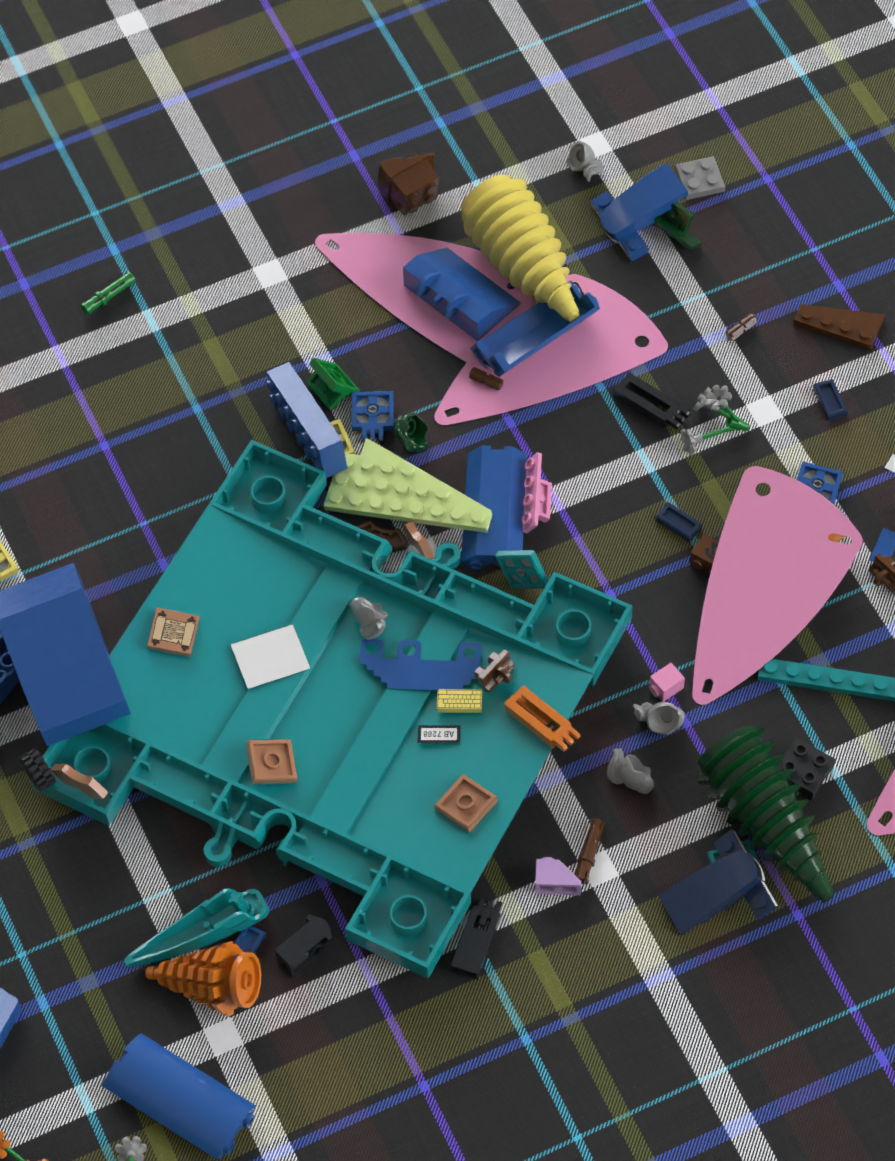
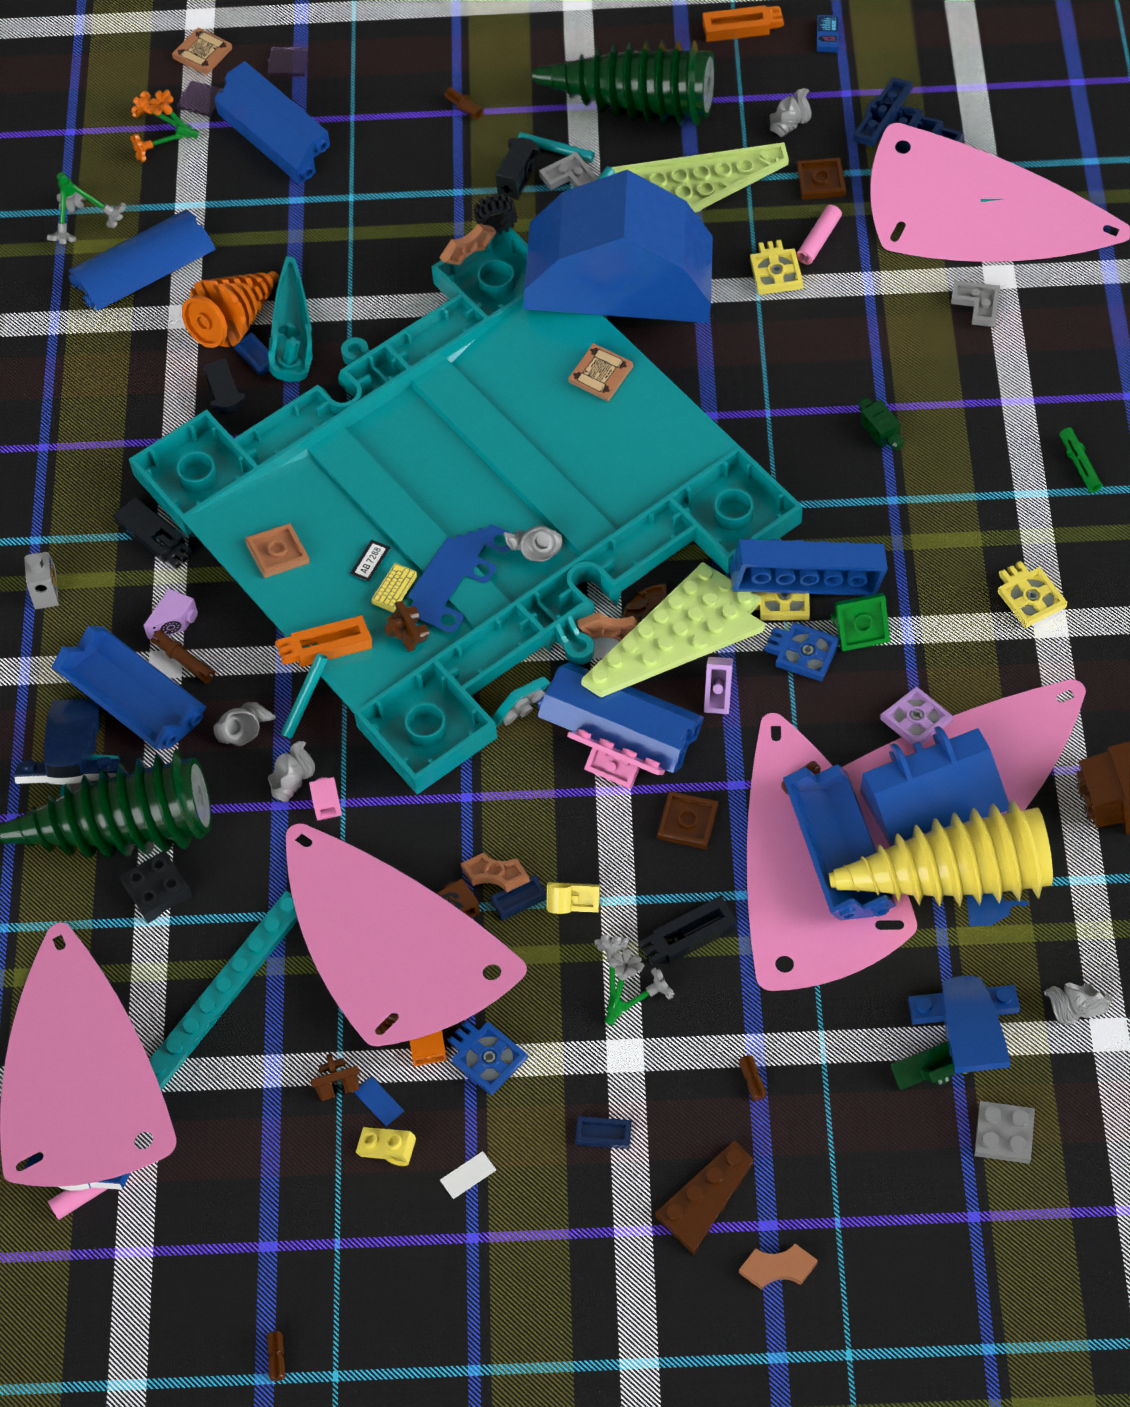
camera: 115 degrees right, 0 degrees up
(128, 433) = (880, 423): none -> dark green piece
(253, 288) = (1030, 594): none -> light yellow piece
(270, 656) = (537, 450): white sticker -> none
(271, 761) = (416, 411): nougat tile -> none
(399, 322) = (916, 717): none -> lavender piece
(412, 432) = (756, 673): dark green hair -> none
(431, 456) = (718, 685): none -> lavender slope
(557, 438) = (687, 820): none -> reddish brown tile
(572, 997) = (41, 571): none -> light grey torso
(591, 724) = (304, 695): none -> teal piece
(642, 872) = (129, 688): none -> blue panel
(666, 488) = (570, 897): none -> light yellow plate
(669, 551) = (502, 873): none -> nougat tile
(870, 274) = (789, 1265): none -> nougat tile

